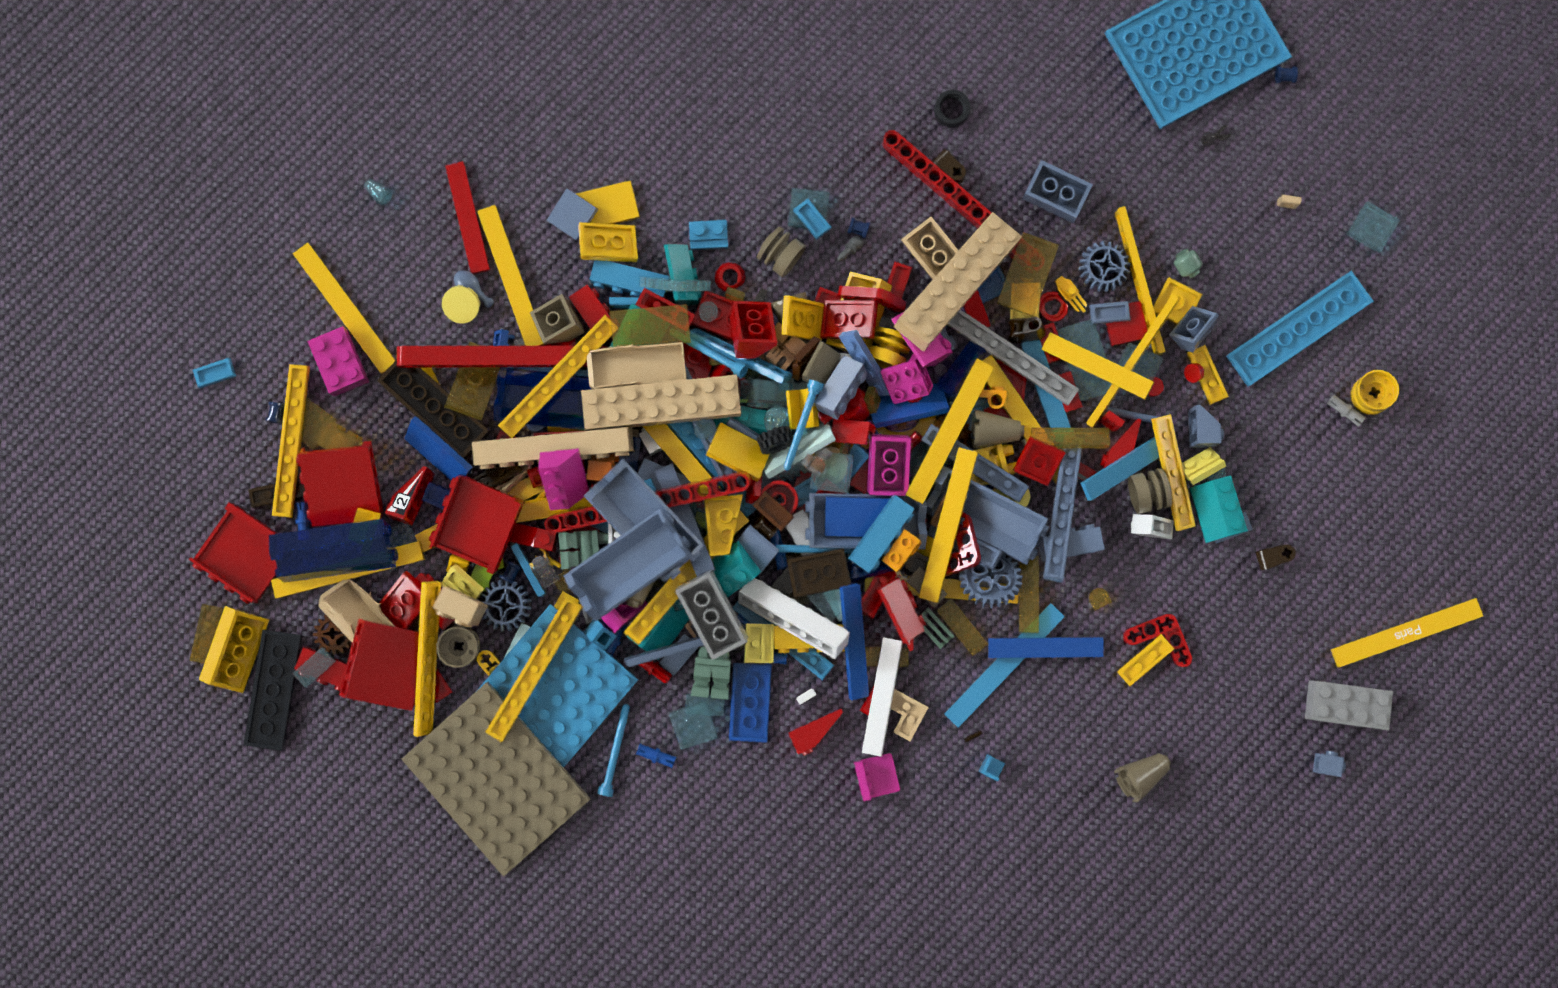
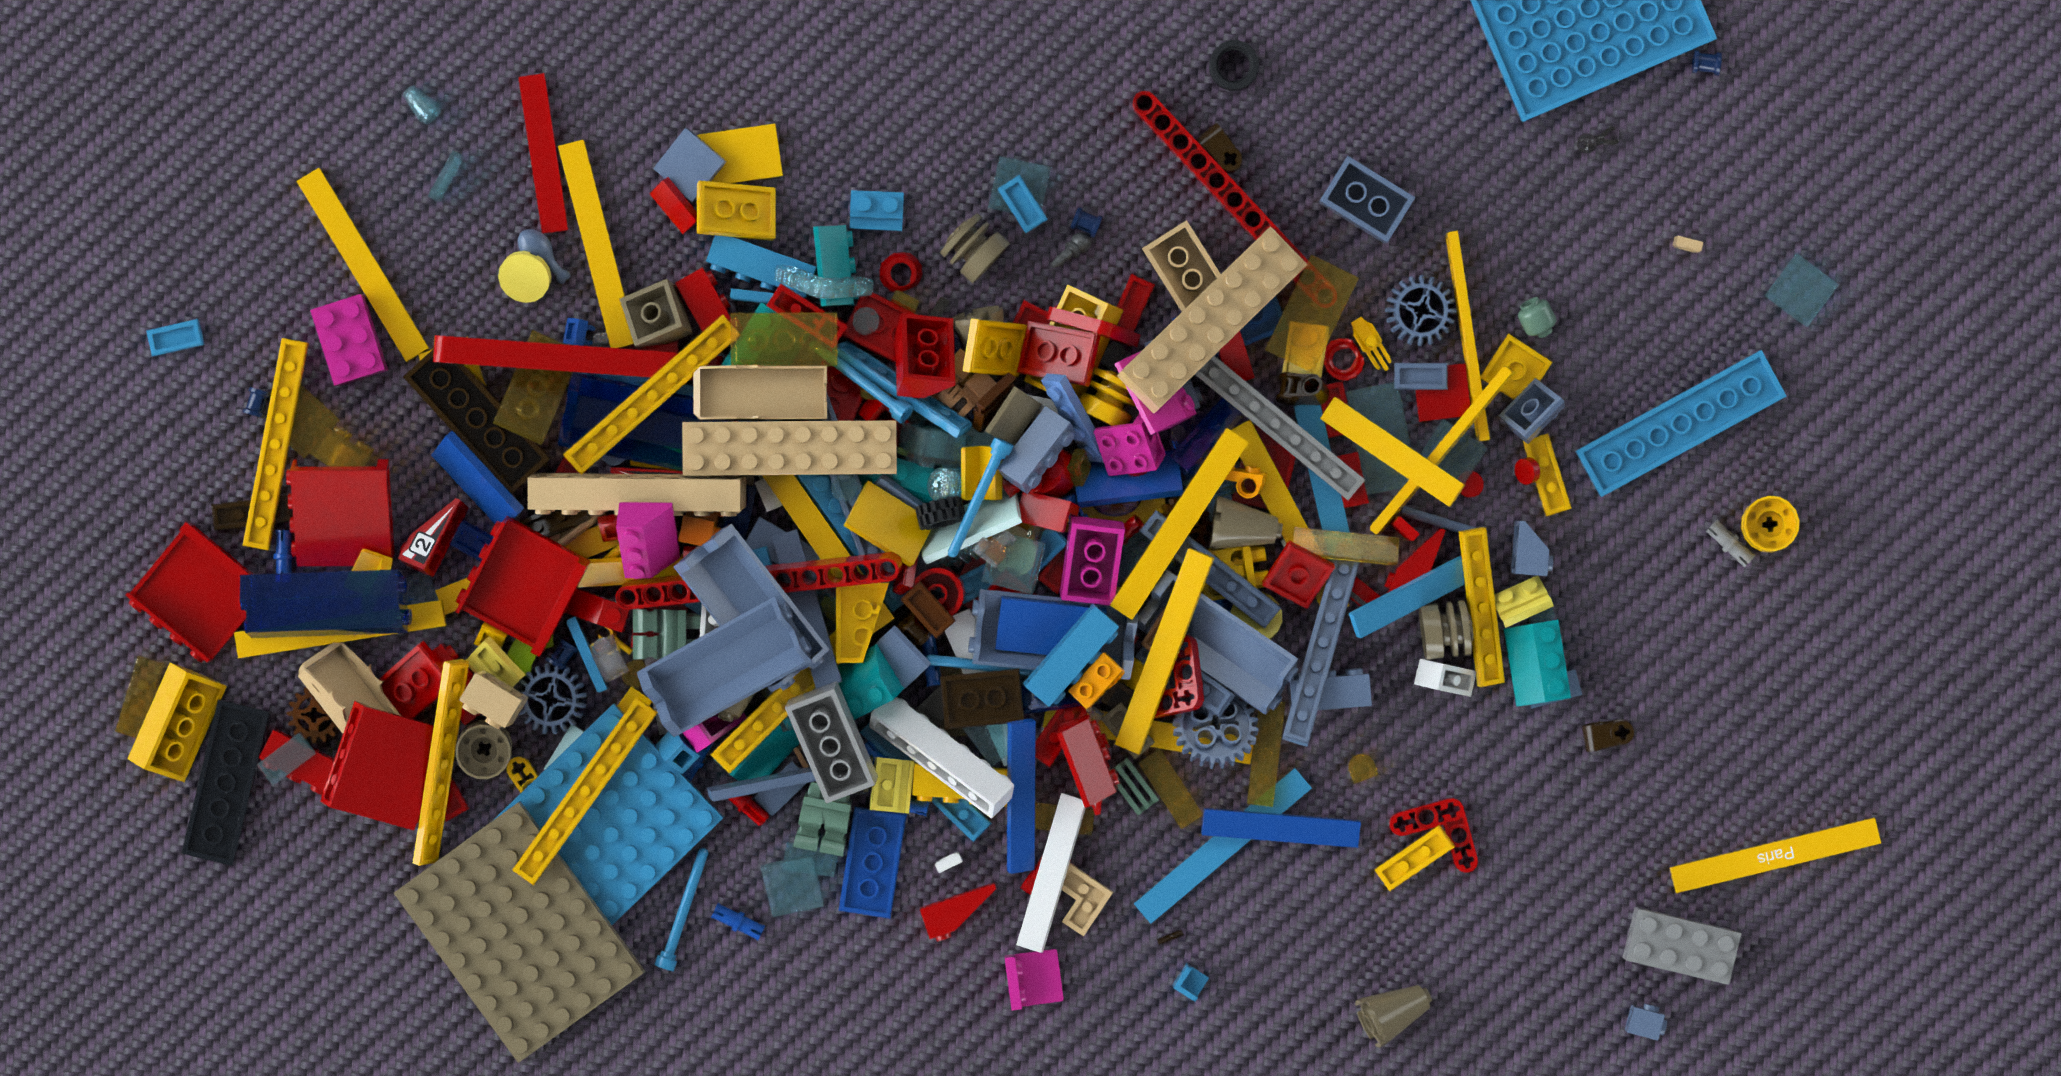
camera: 10 degrees right, 5 degrees up
(399, 239) = (446, 176): none -> clear light blue tile
(564, 244) = (674, 205): none -> red tile

